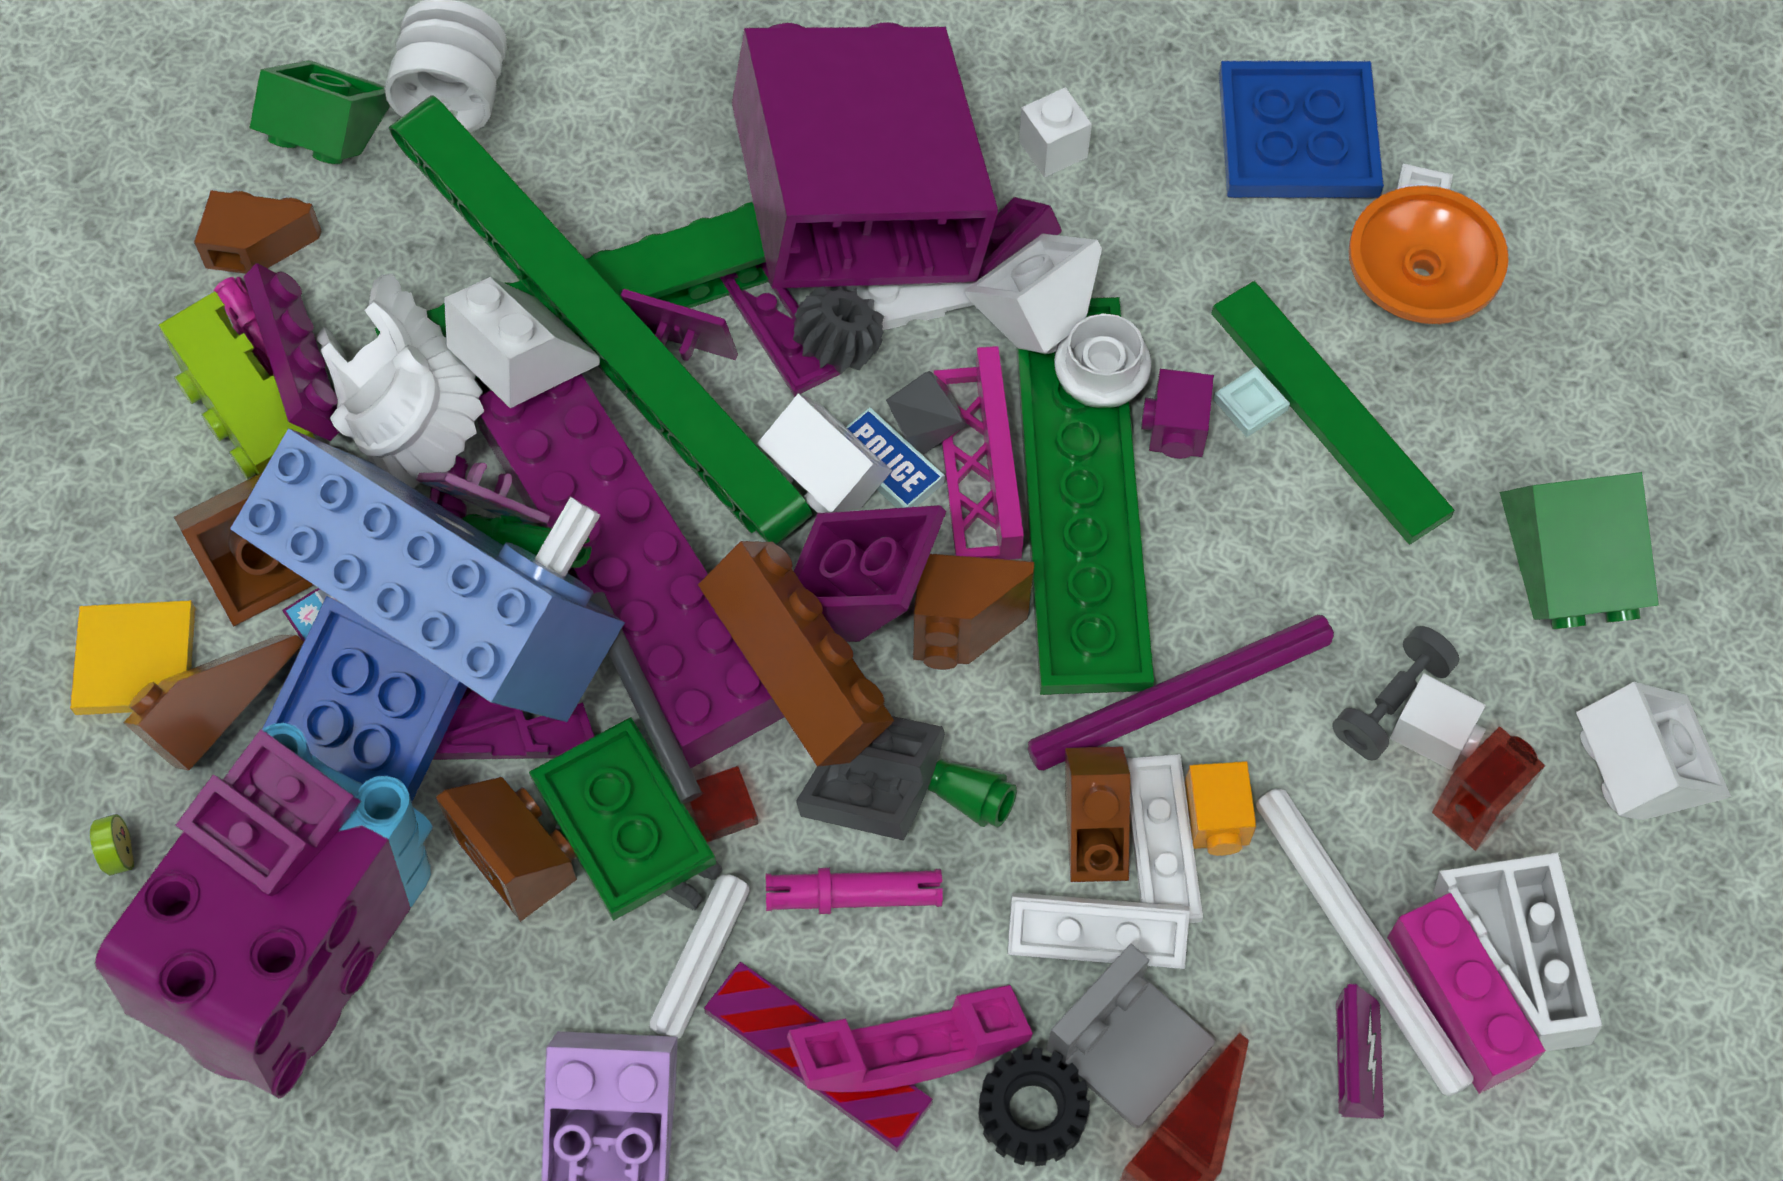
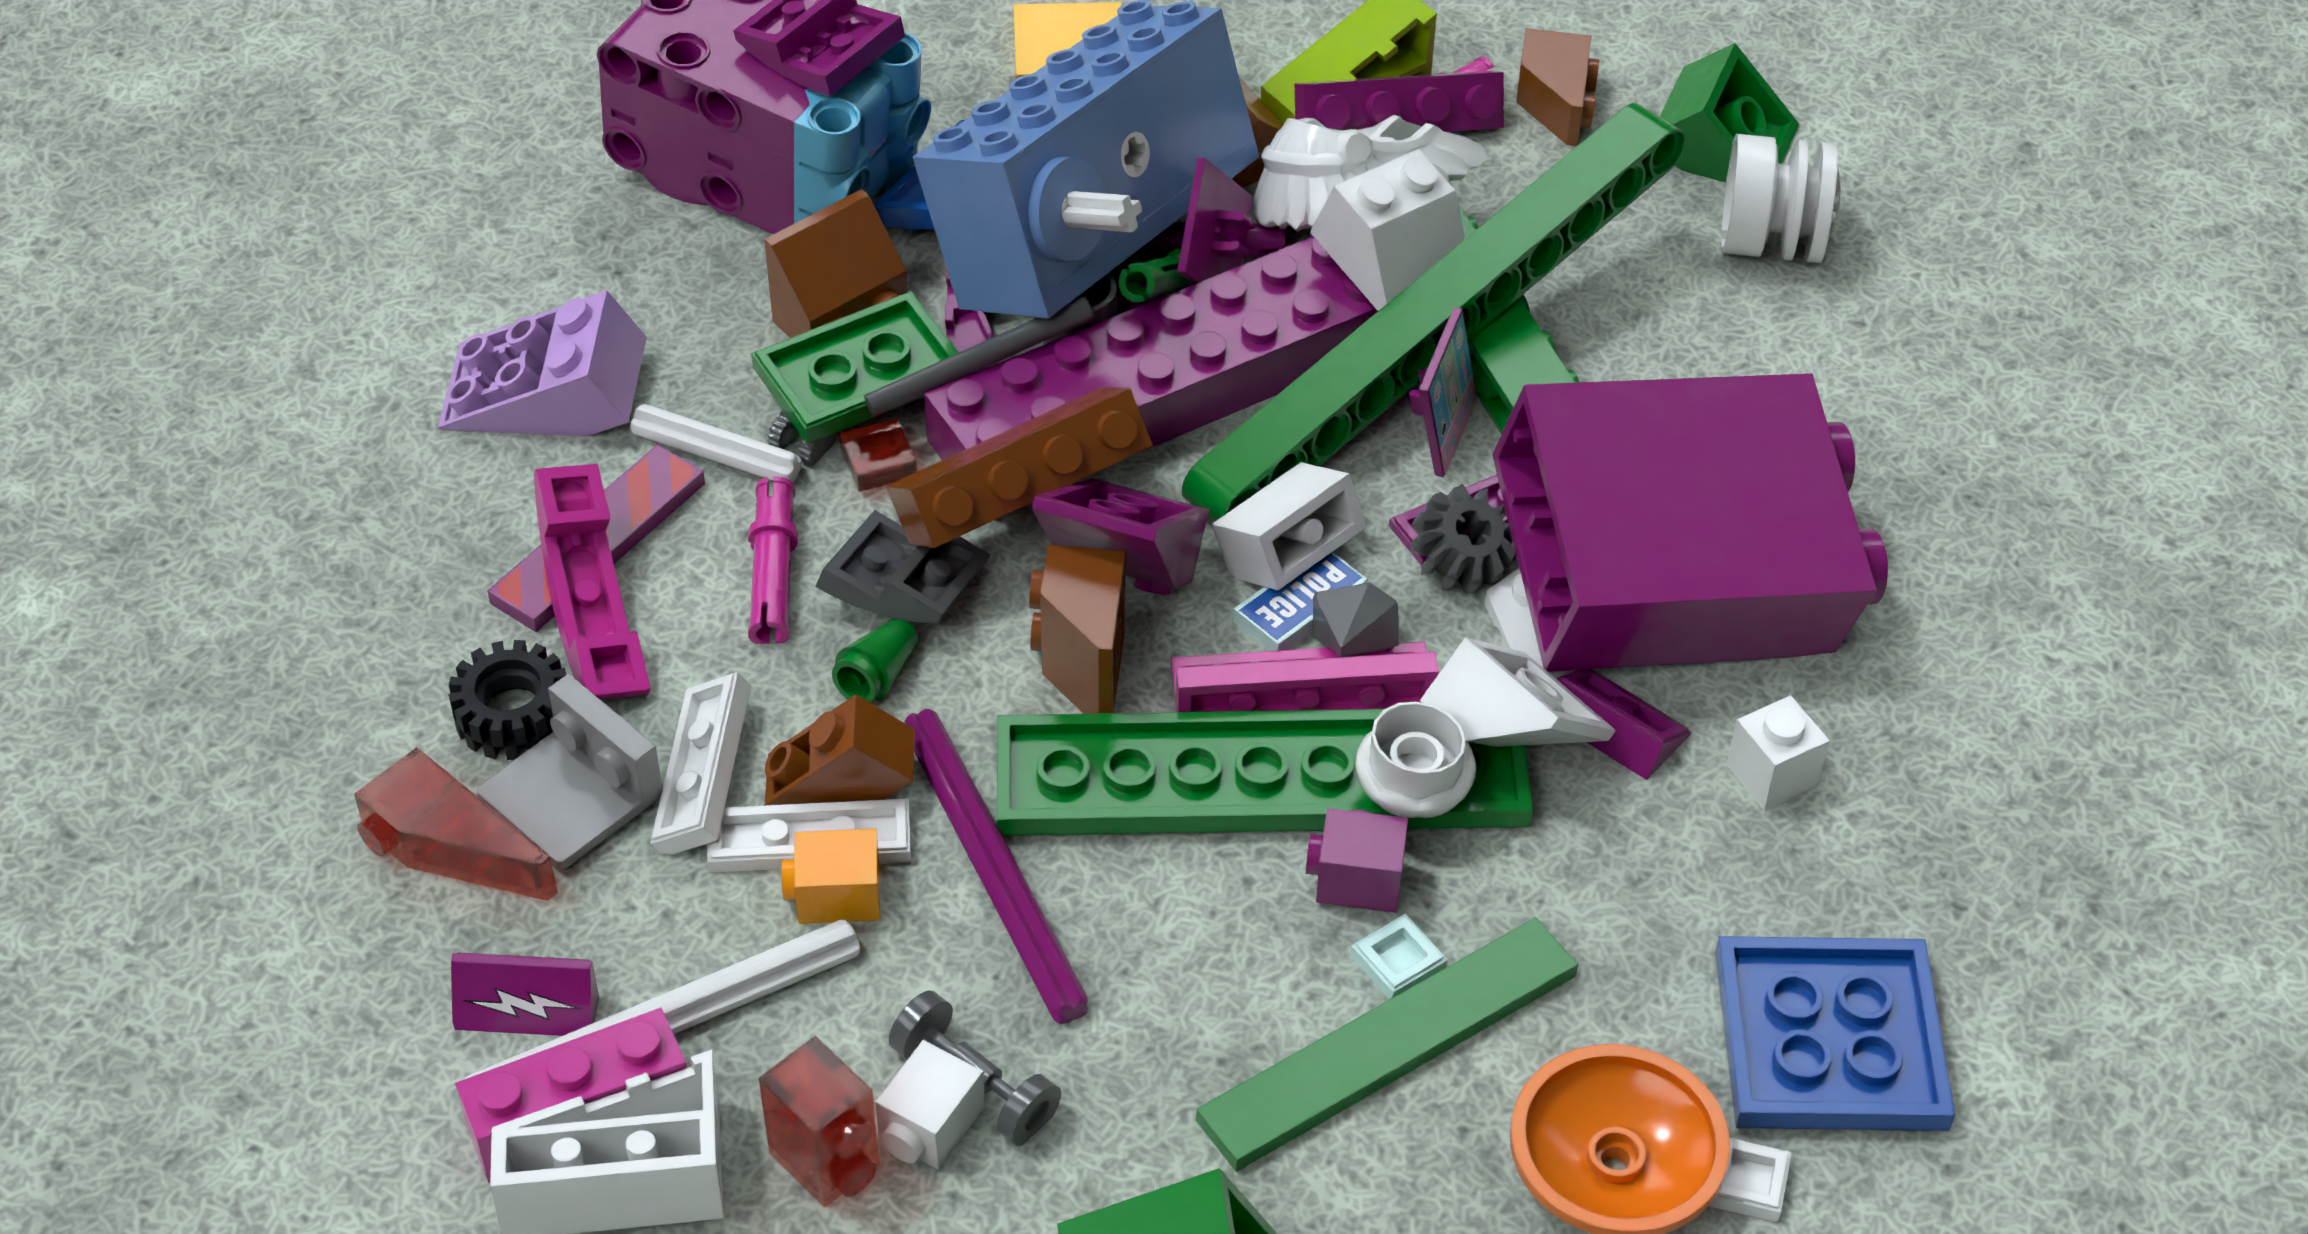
camera: 90 degrees right, 15 degrees down
(196, 706) = (986, 56): dark orange slope -> none

